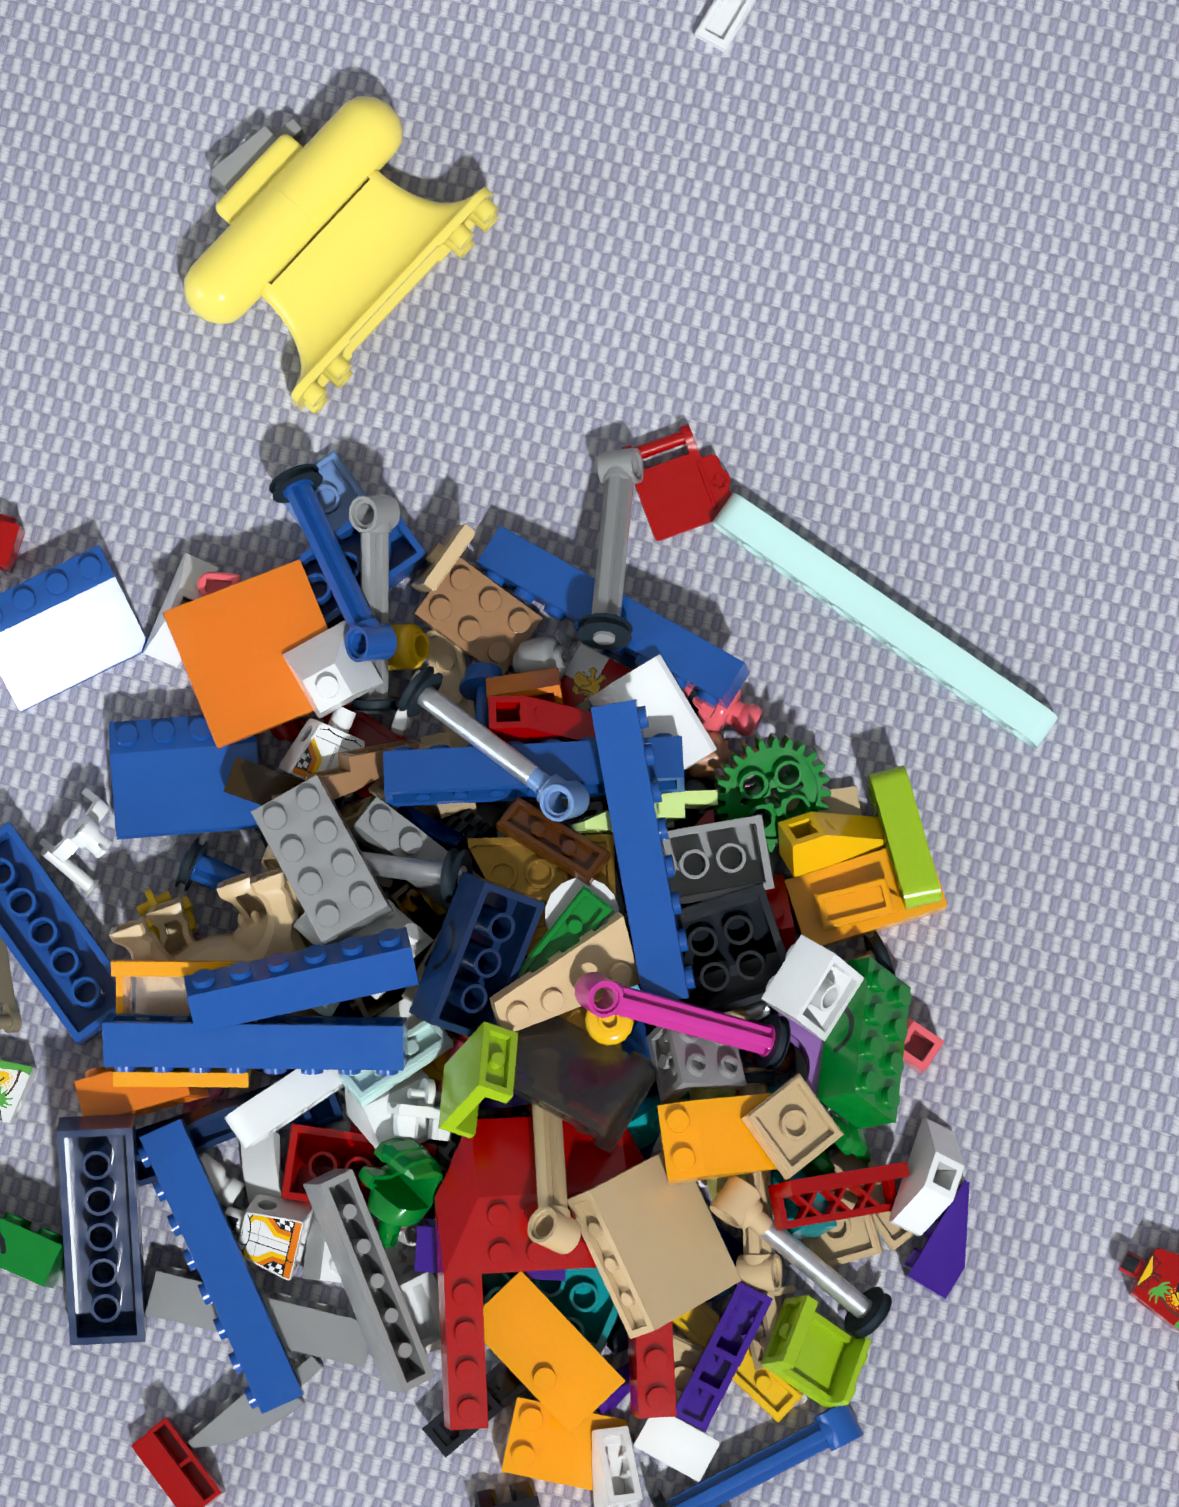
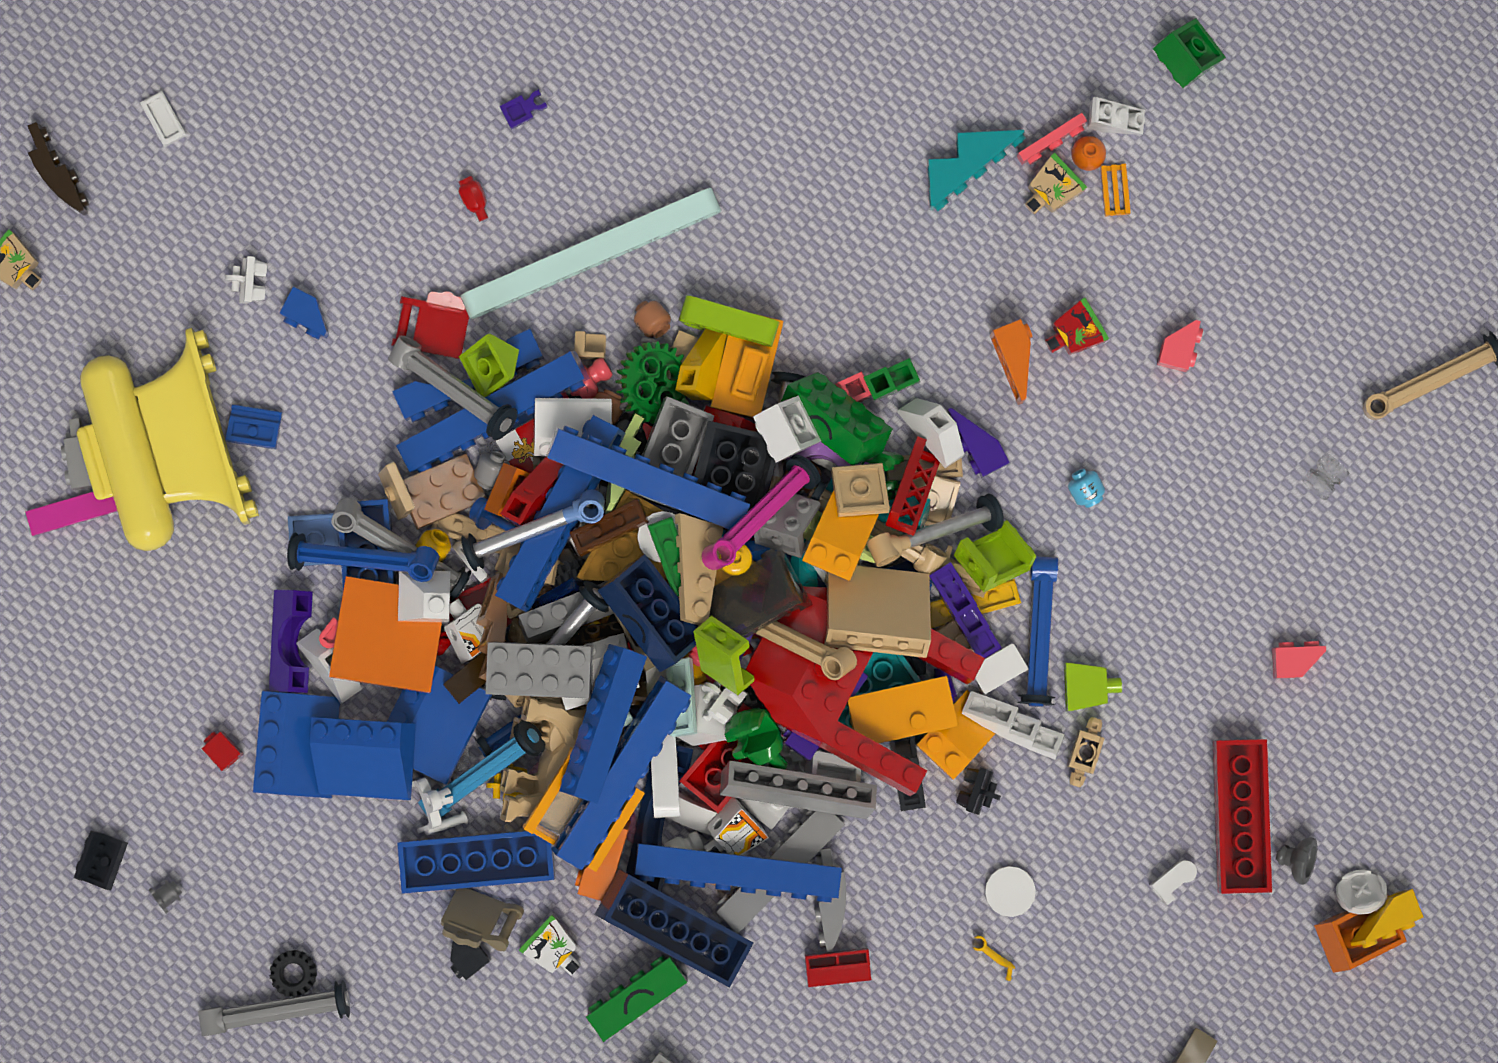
camera: 65 degrees left, 5 degrees up
(89, 716) = (363, 757): none -> blue slope
(147, 559) = (290, 612): none -> dark purple arch
(179, 187) = (68, 513): none -> dark pink tile
(226, 899) = (525, 740): none -> dark azure piece
(419, 343) = (254, 427): none -> blue plate
(598, 320) = (304, 311): none -> blue slope
(609, 223) = (249, 269): none -> white hips
(670, 576) = (490, 364): none -> lime slope
(702, 604) = (419, 398): none -> blue arch
(769, 688) = (590, 345): none -> tan panel
(849, 744) = (652, 319): none -> nougat head
(864, 436) = (473, 197): none -> red plant
(957, 1087) = (892, 379): none -> green brick
(974, 1417) = (1086, 488): none -> medium azure head
(1006, 427) = (519, 110): none -> dark purple plate
(1092, 1215) = (1013, 350): none -> orange slope

